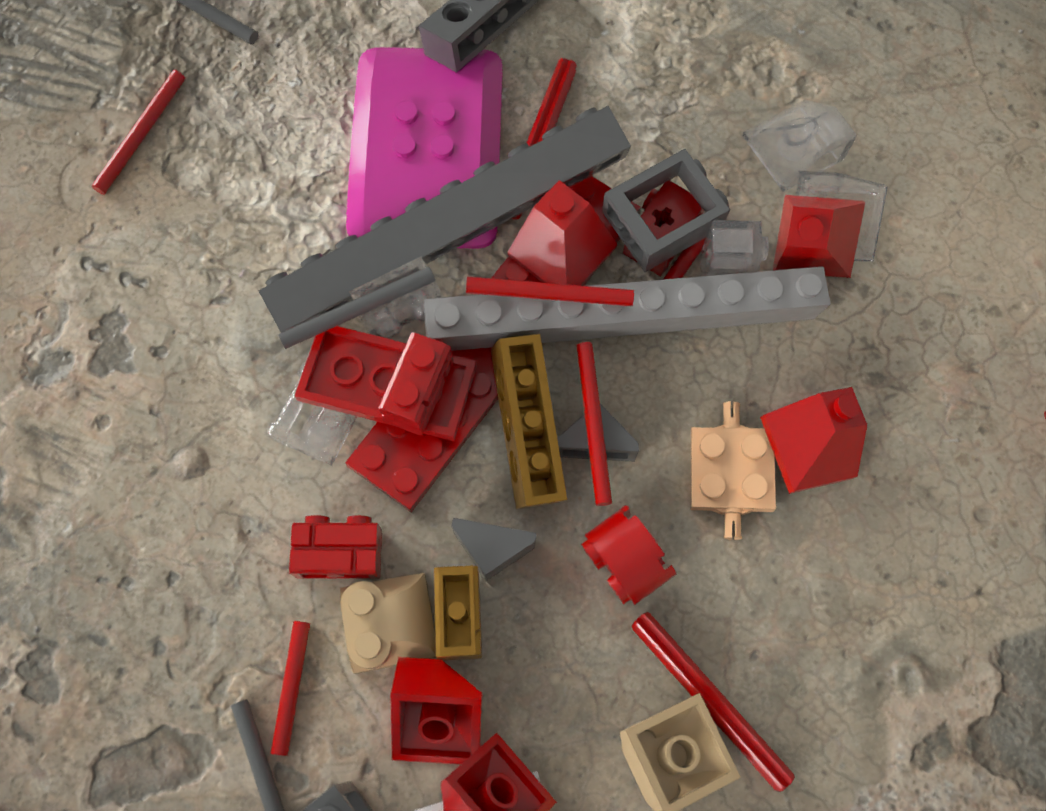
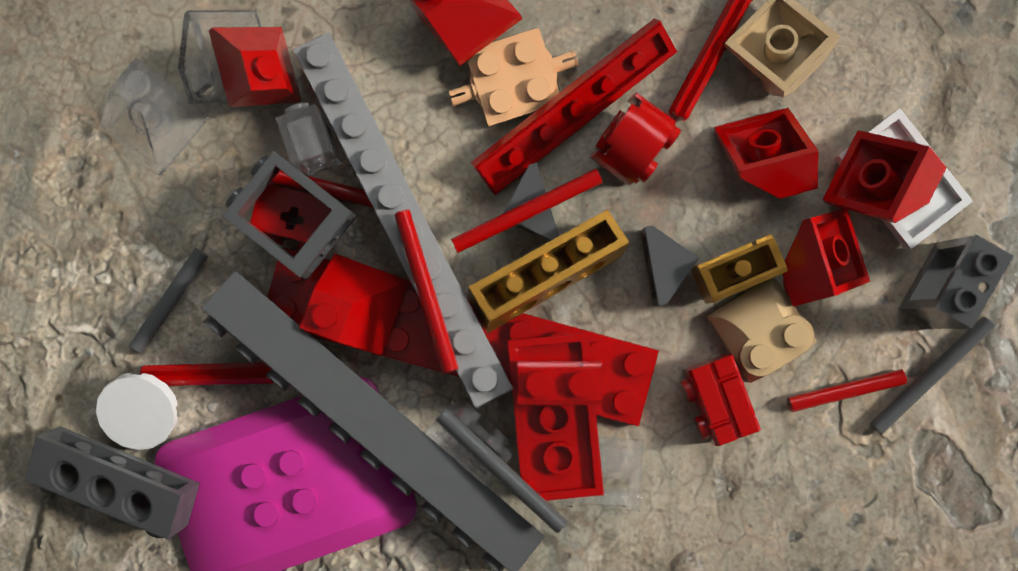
camera: 105 degrees left, 15 degrees up
(539, 47) = (137, 411): none -> white tile
(565, 695) = (771, 152): none -> red slope
(627, 105) = (168, 300): none -> dark grey bar
(685, 521) = (574, 106): none -> red tile

